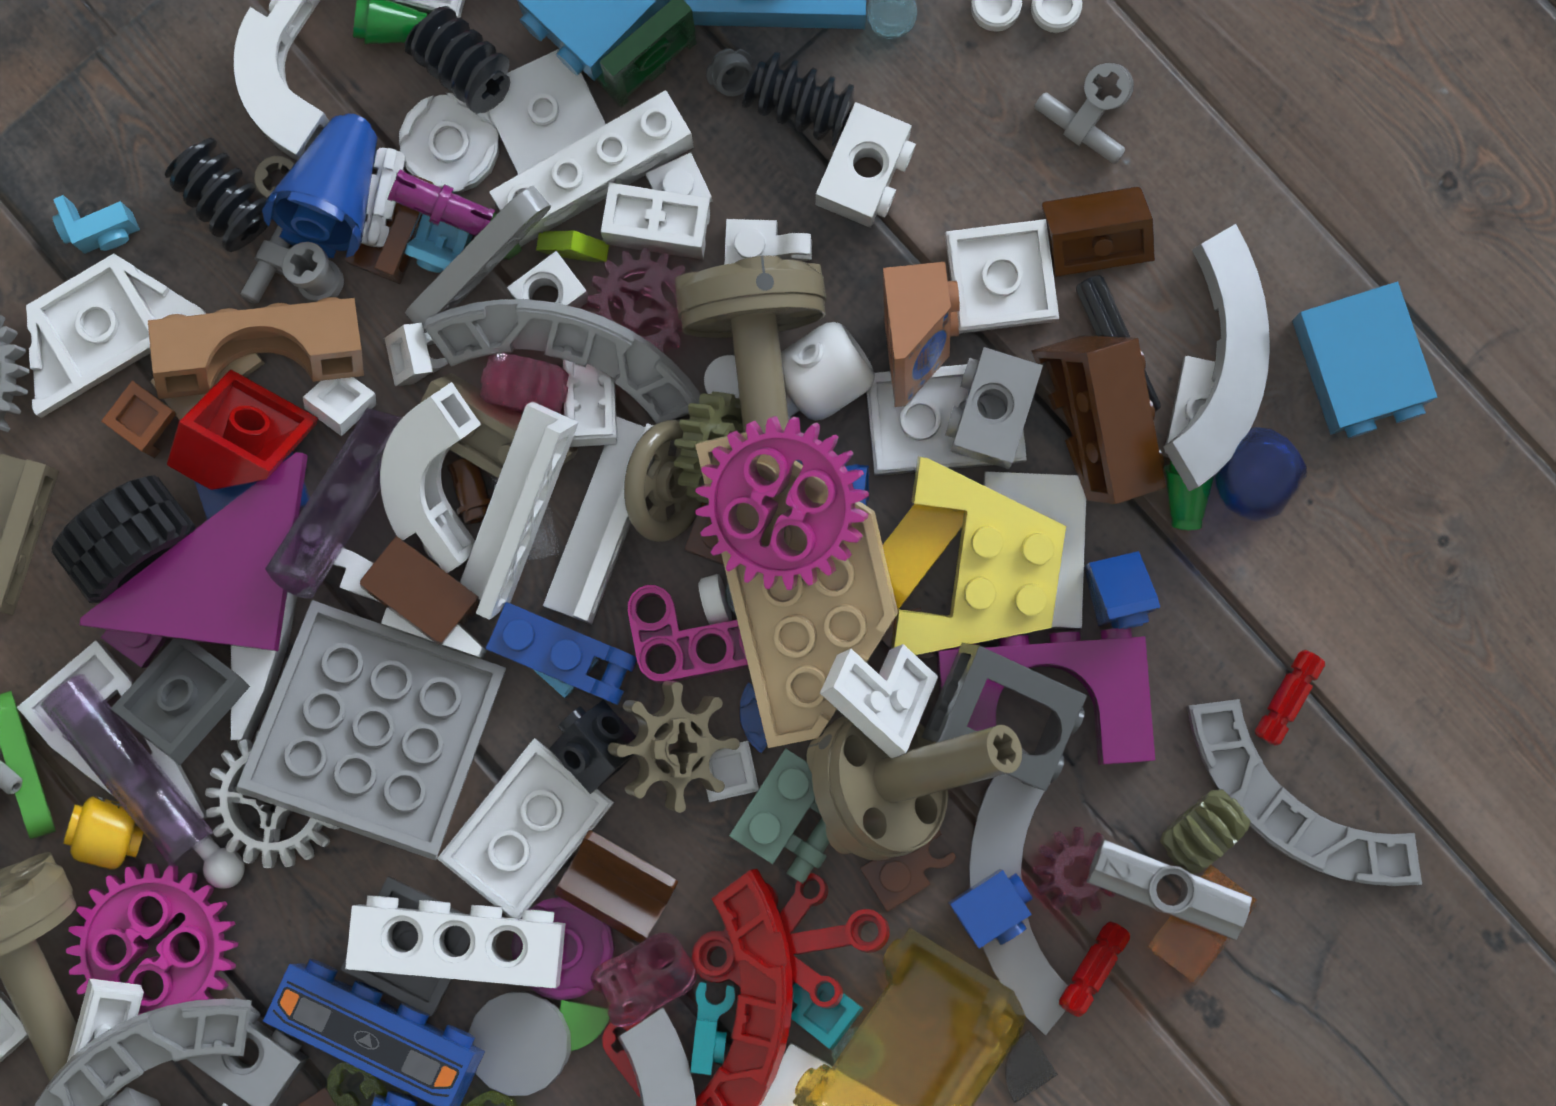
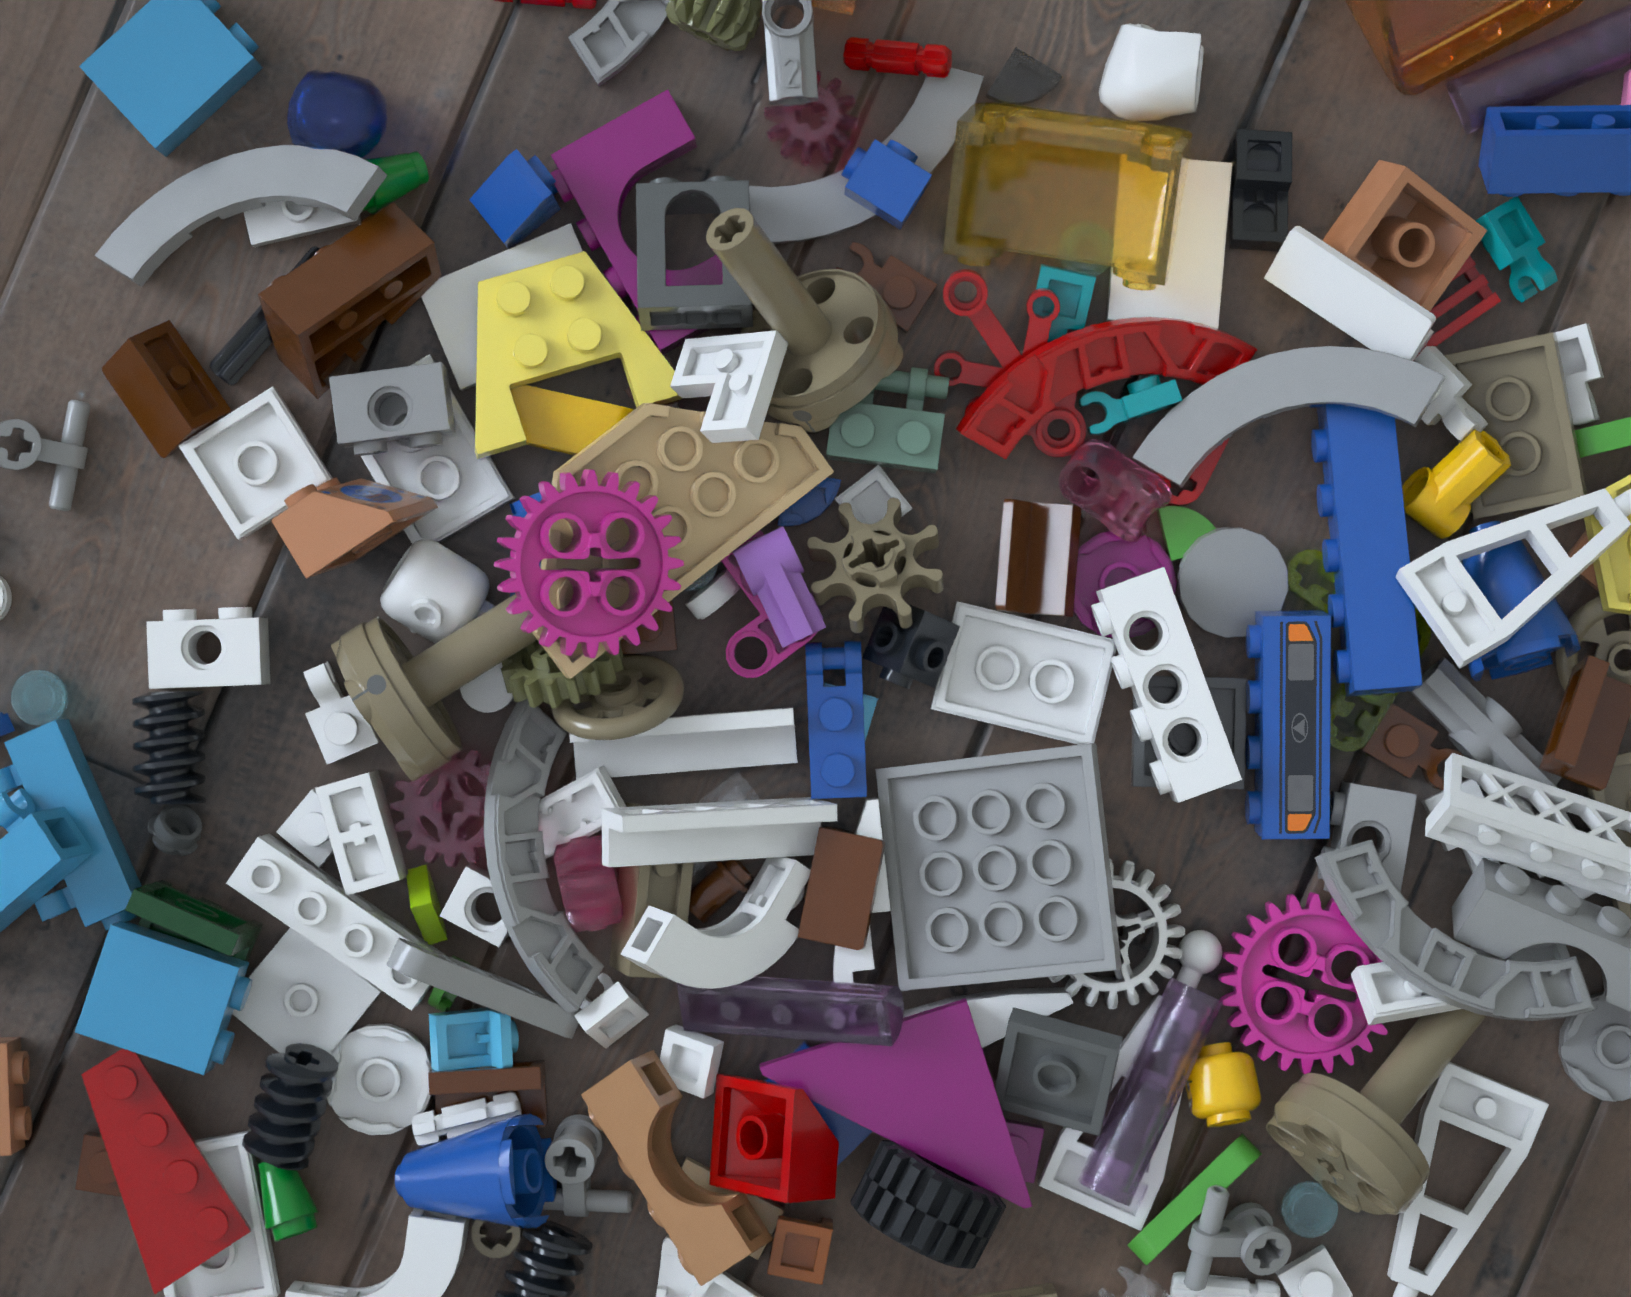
camera: 120 degrees left, 5 degrees up
(439, 204) = (447, 1052): magenta pin -> none
(701, 657) = (775, 575): none -> medium lavender piece

